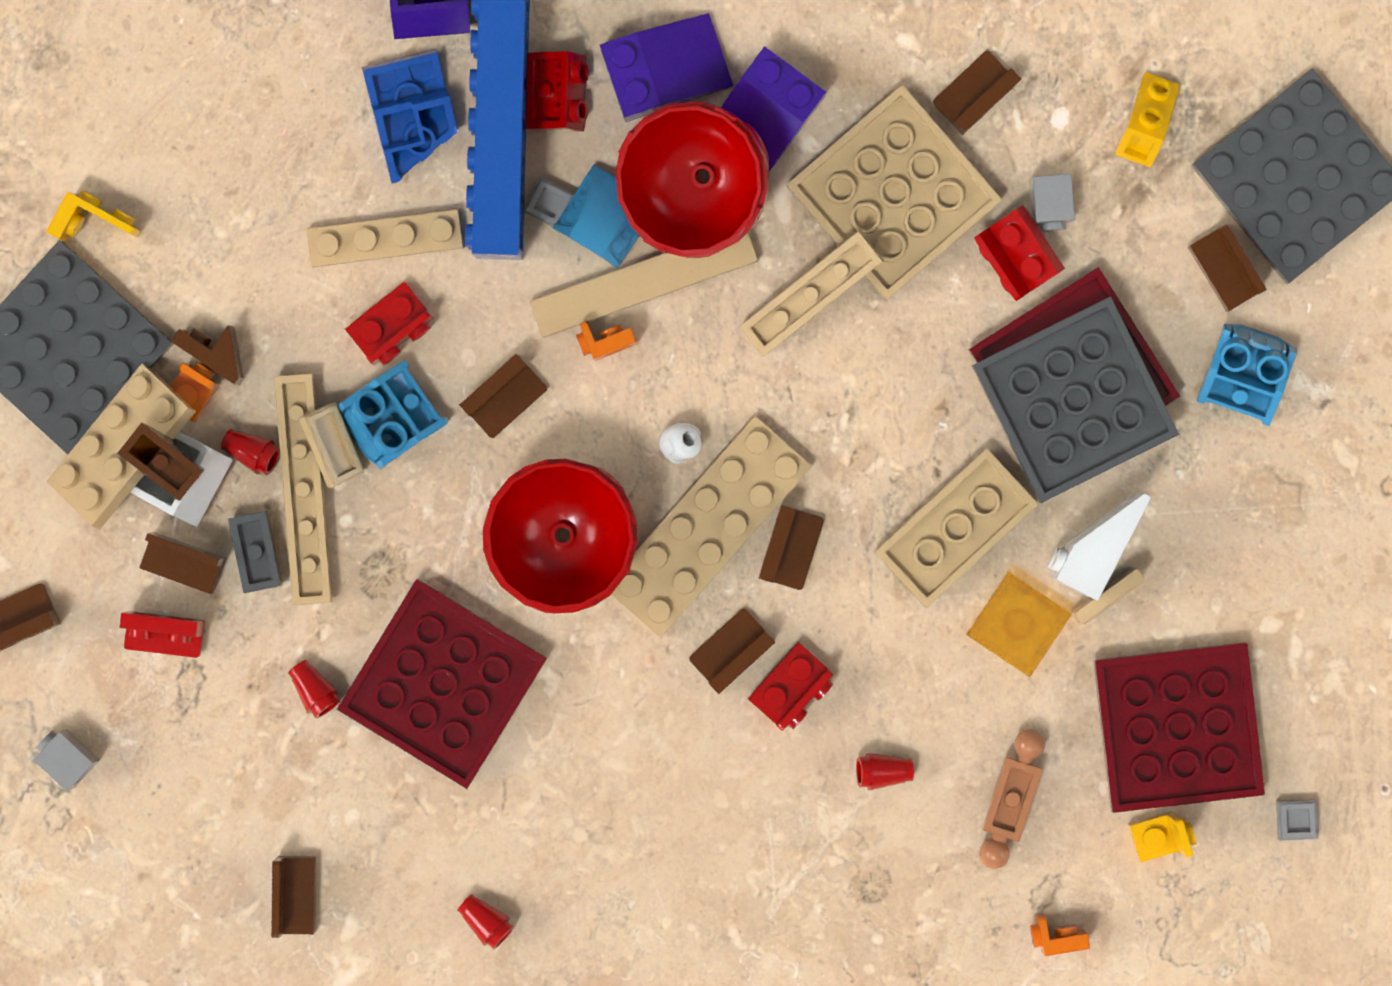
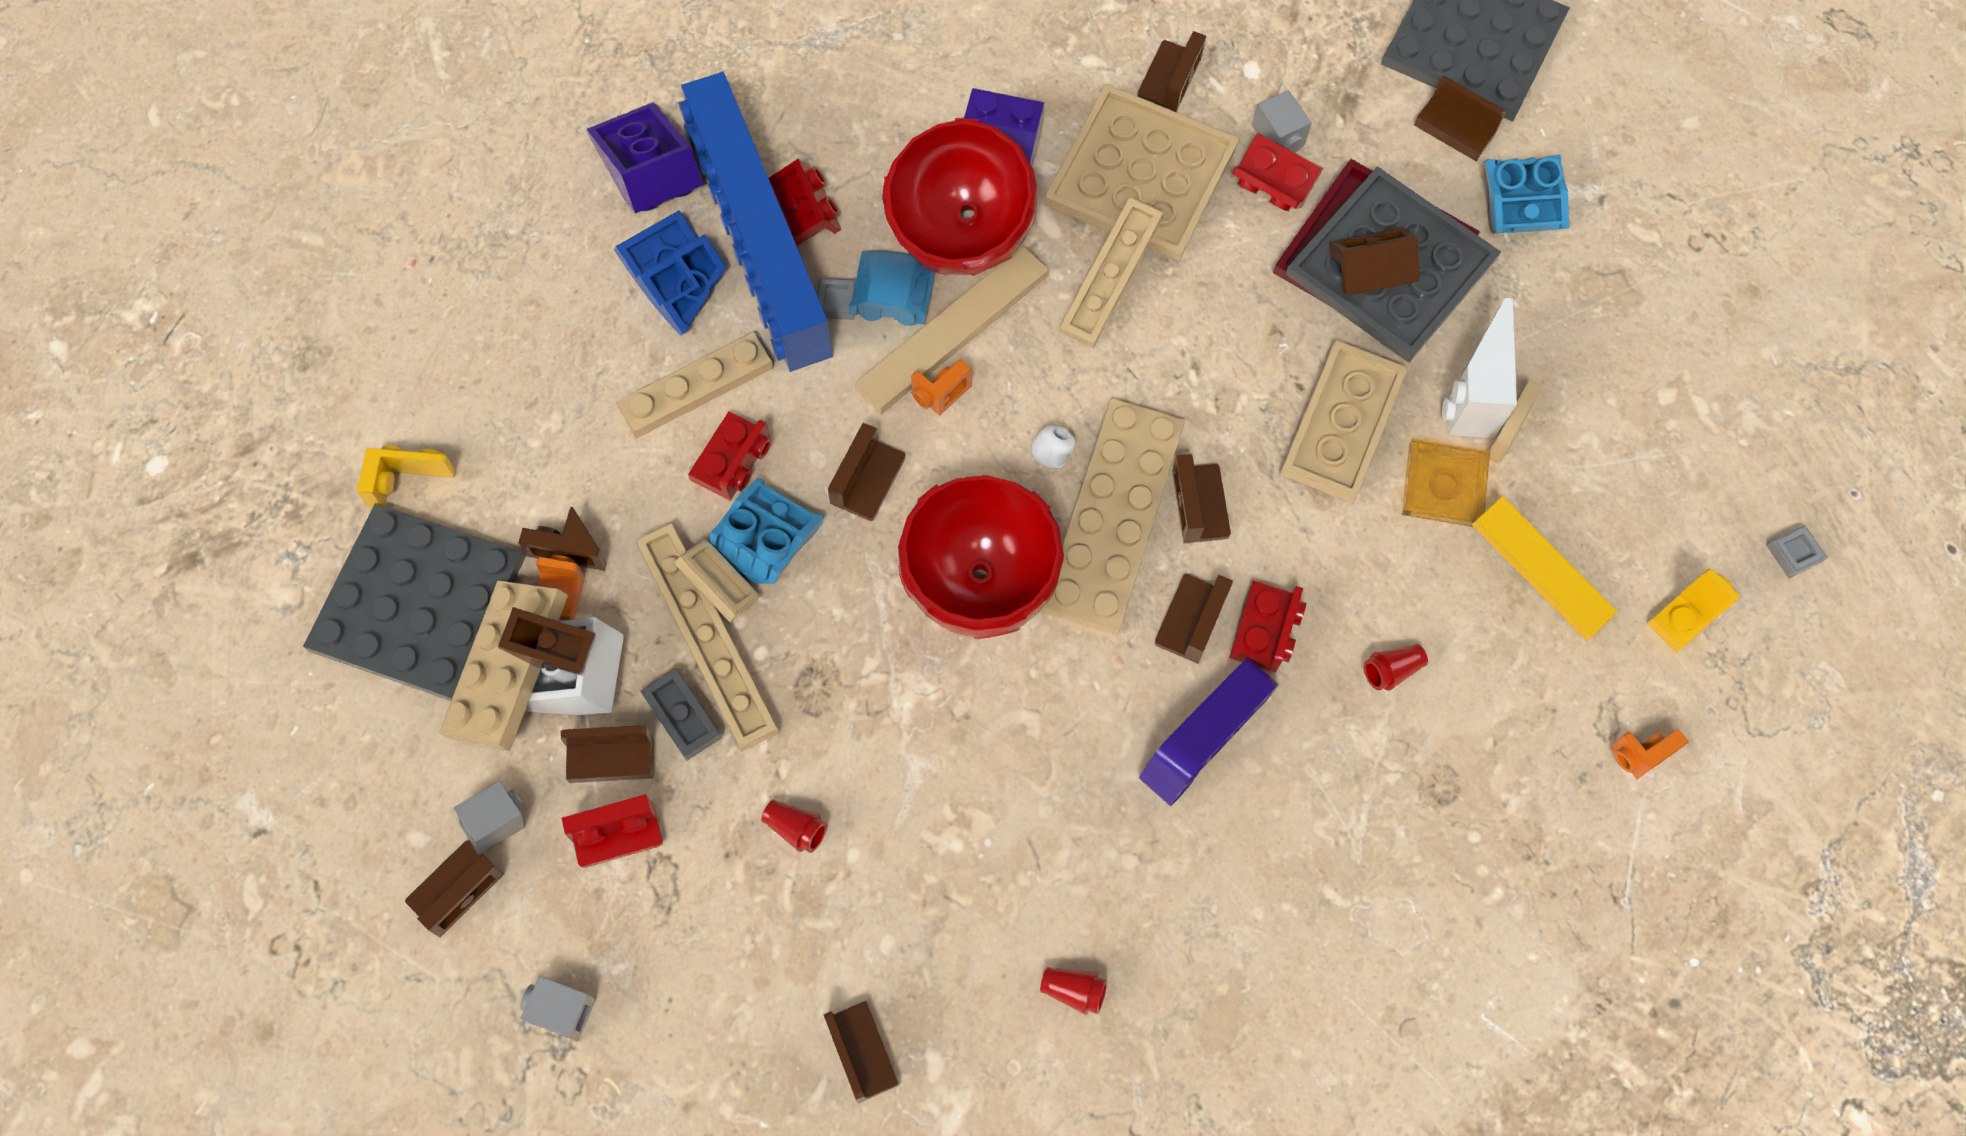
camera: 25 degrees left, 20 degrees down
(66, 576) = (490, 816): none -> light grey brick
(252, 451) = (641, 620): red cone -> none
(441, 683) = (923, 765): dark red plate -> none
(665, 66) = (870, 143): dark purple slope -> none
(695, 760) = (1207, 731): none -> dark purple beam
(1012, 799) = (1530, 641): nougat plate -> none
(1053, 397) = (1377, 260): none -> reddish brown panel
(1060, 740) = (1544, 568): none -> yellow tile
(1148, 120) = (1331, 40): yellow bracket -> none
(1179, 727) = (1643, 511): dark red plate -> none

